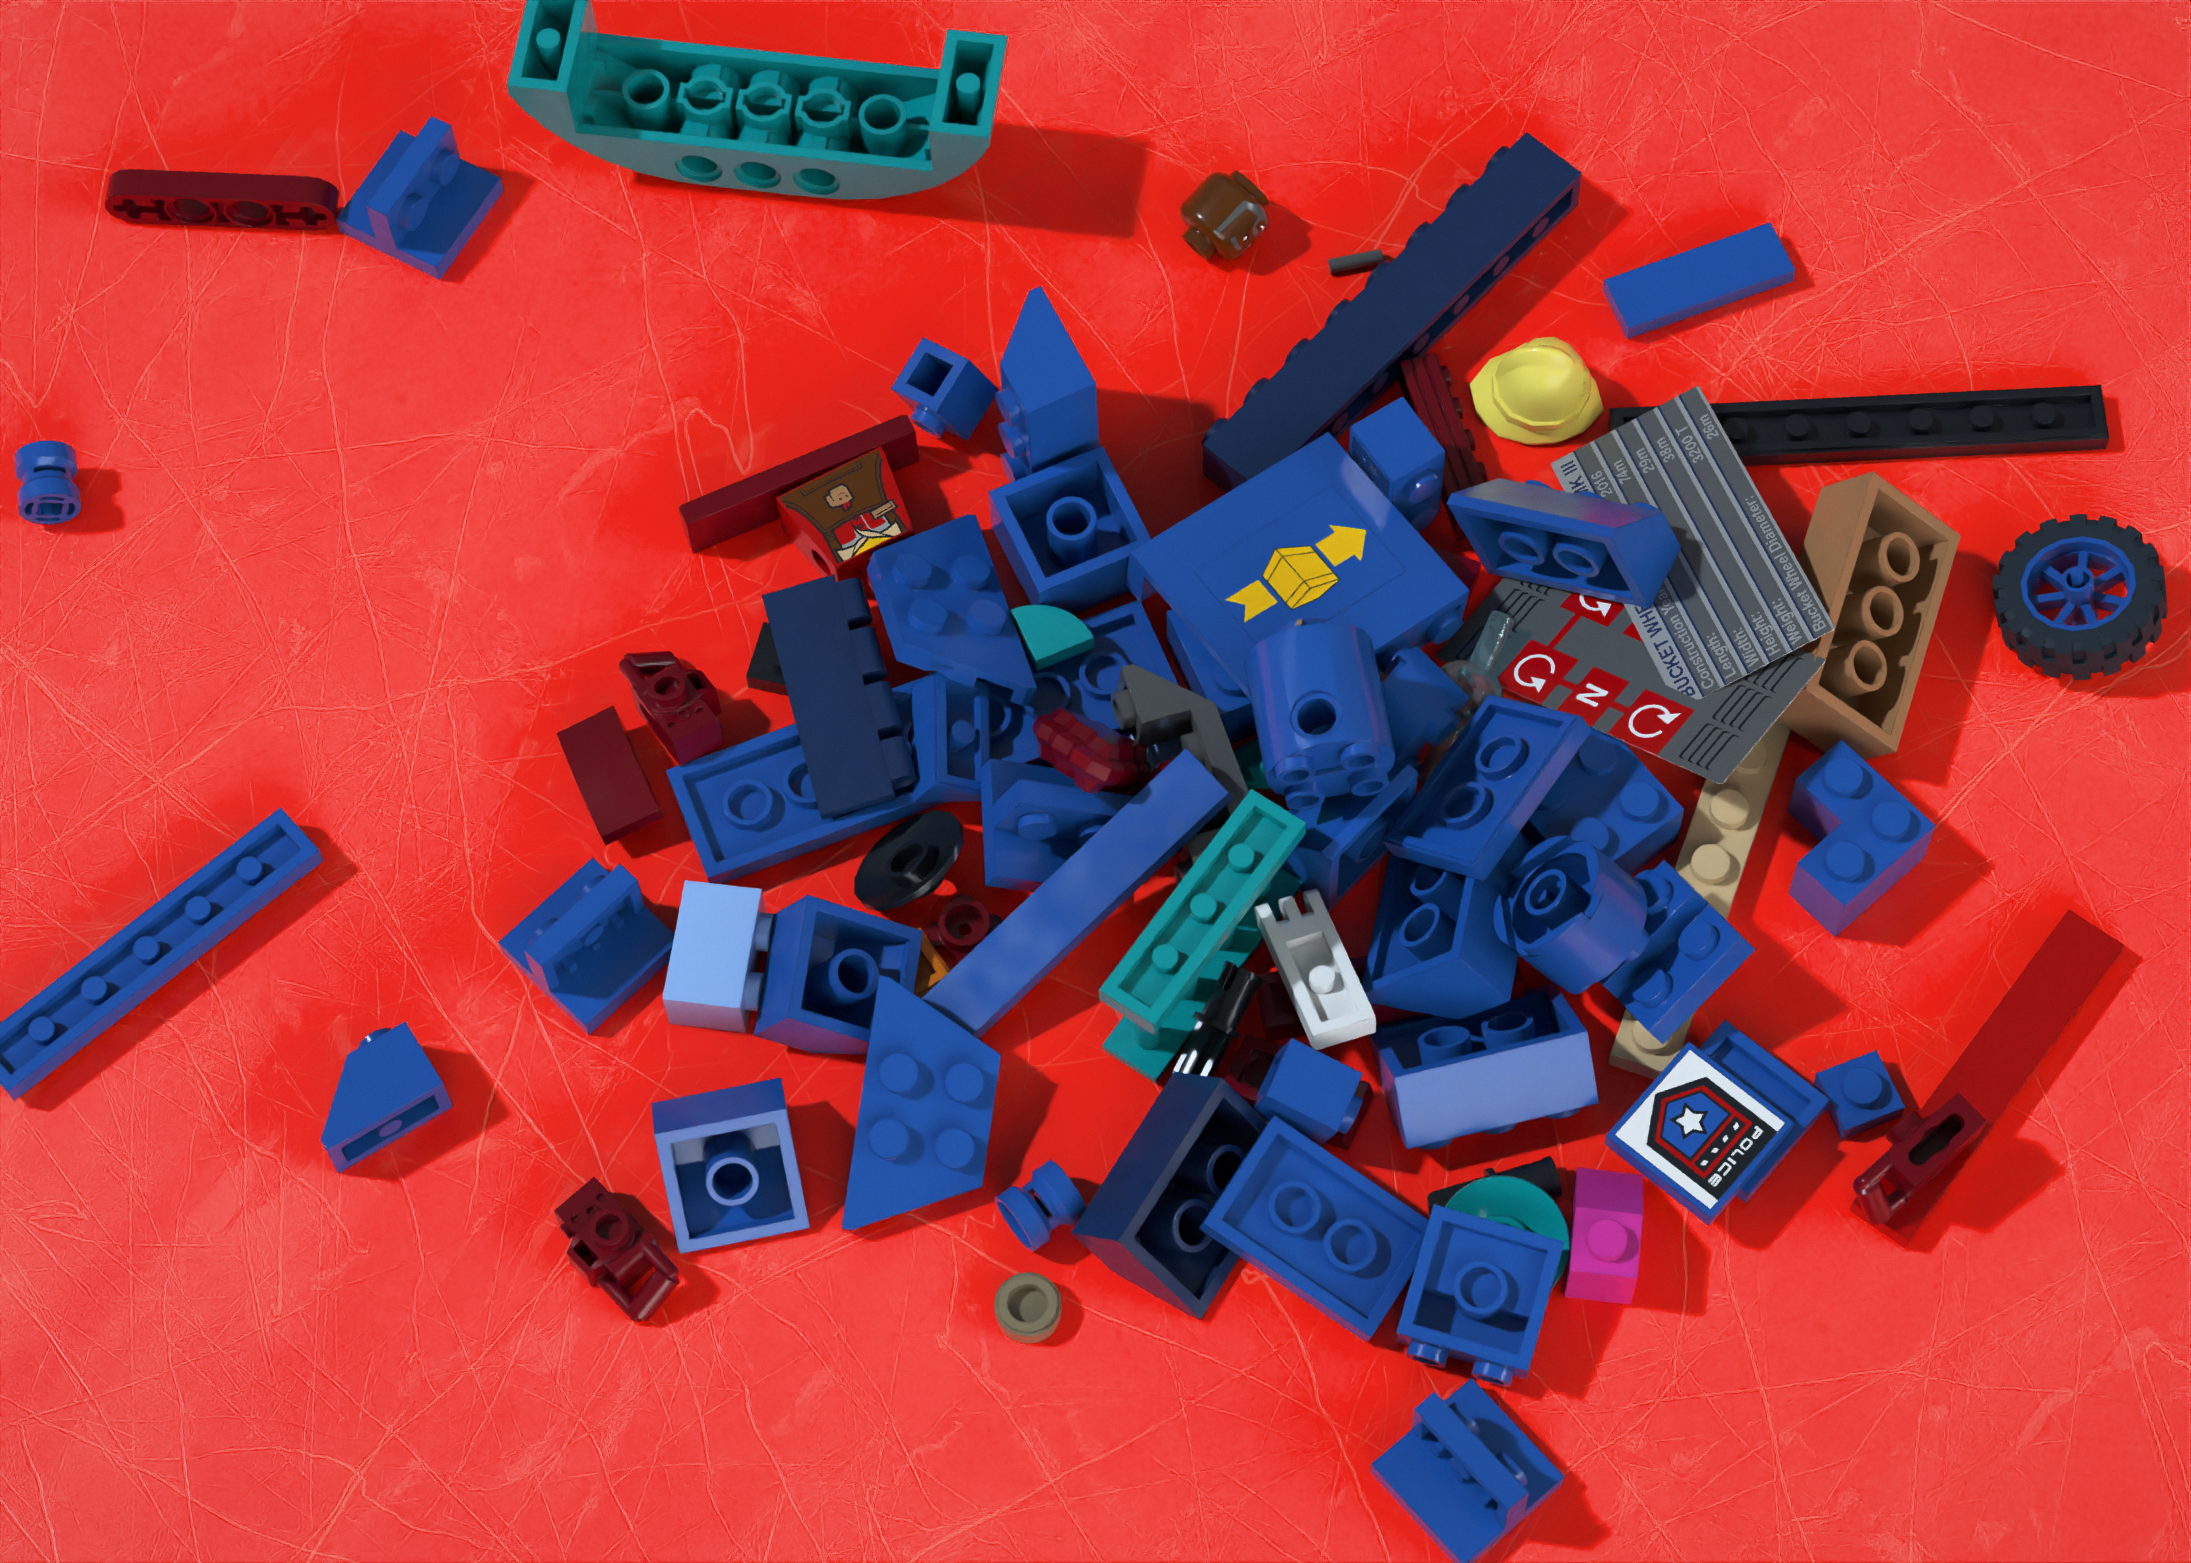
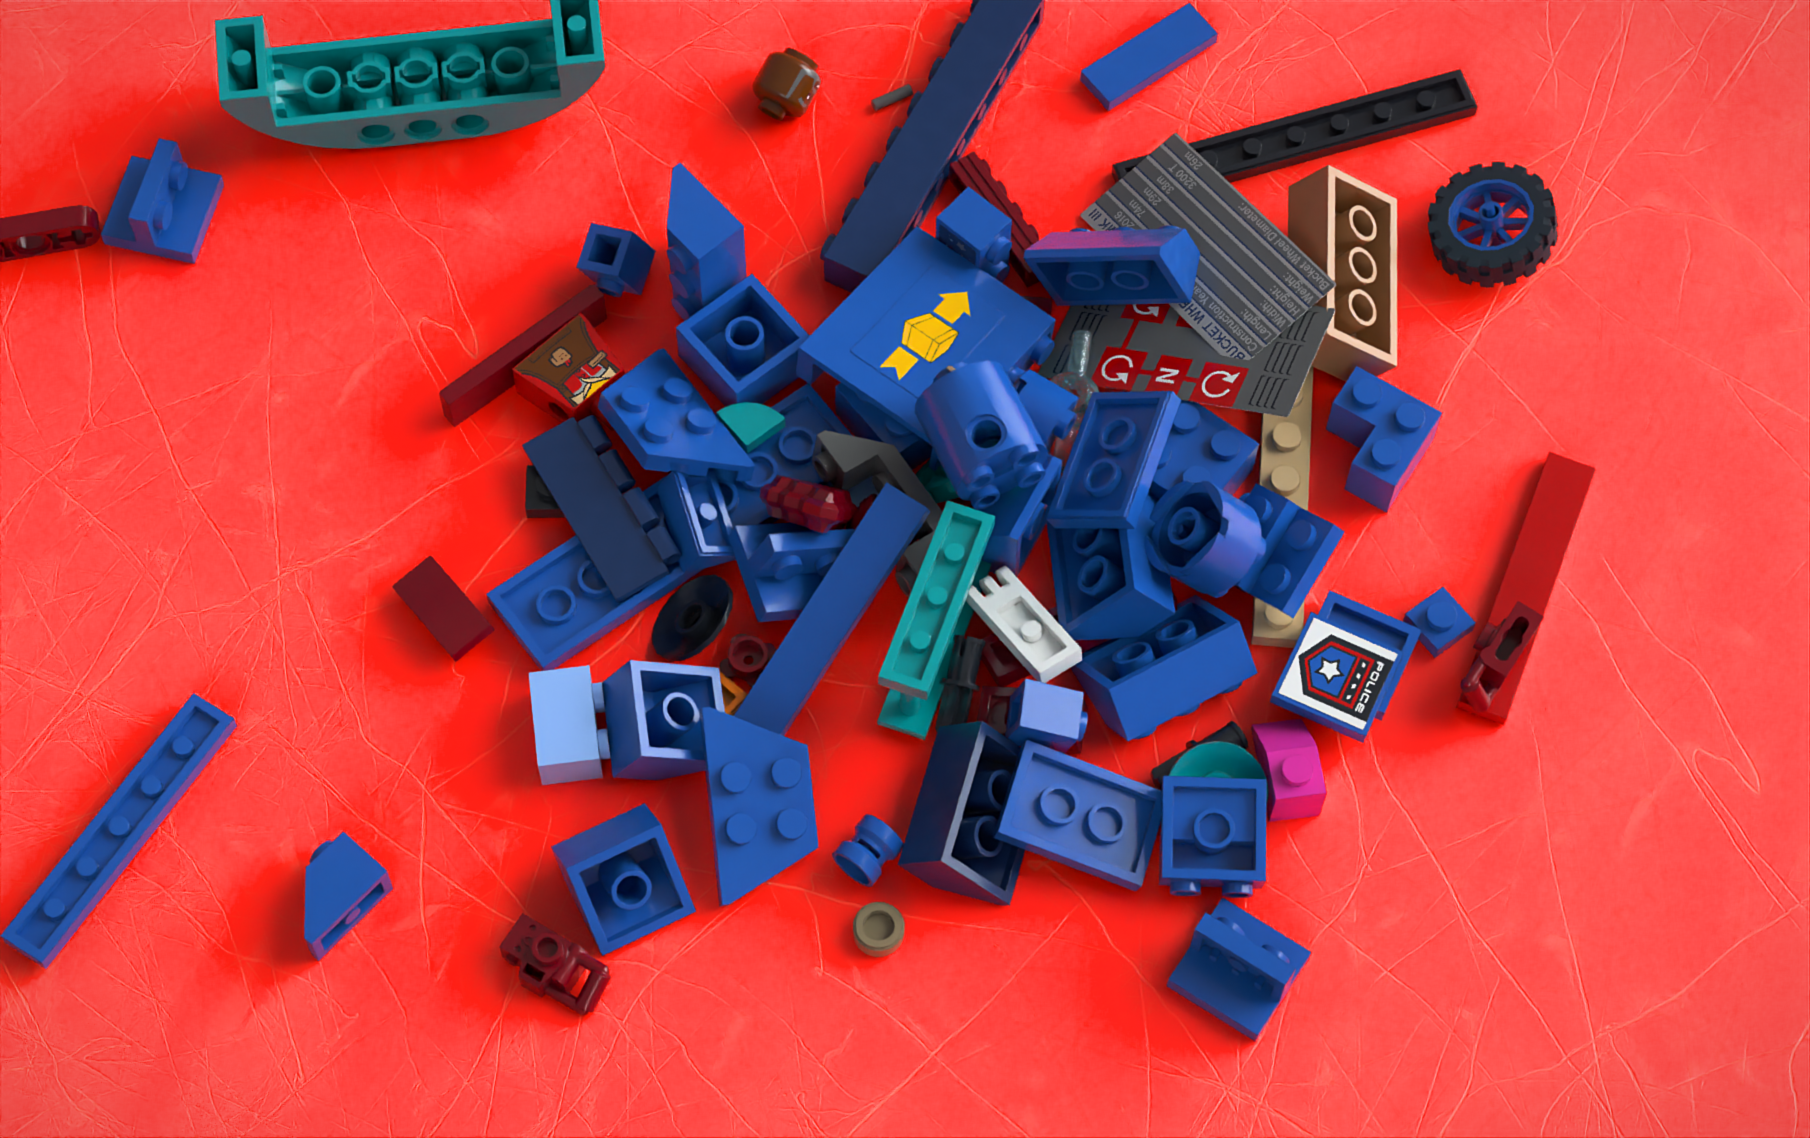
camera: 20 degrees left, 0 degrees up
(591, 944) = (465, 738): blue bracket -> none
(675, 703) = (478, 542): dark red piece -> none
(1537, 393) = (1055, 164): light yellow piece -> none

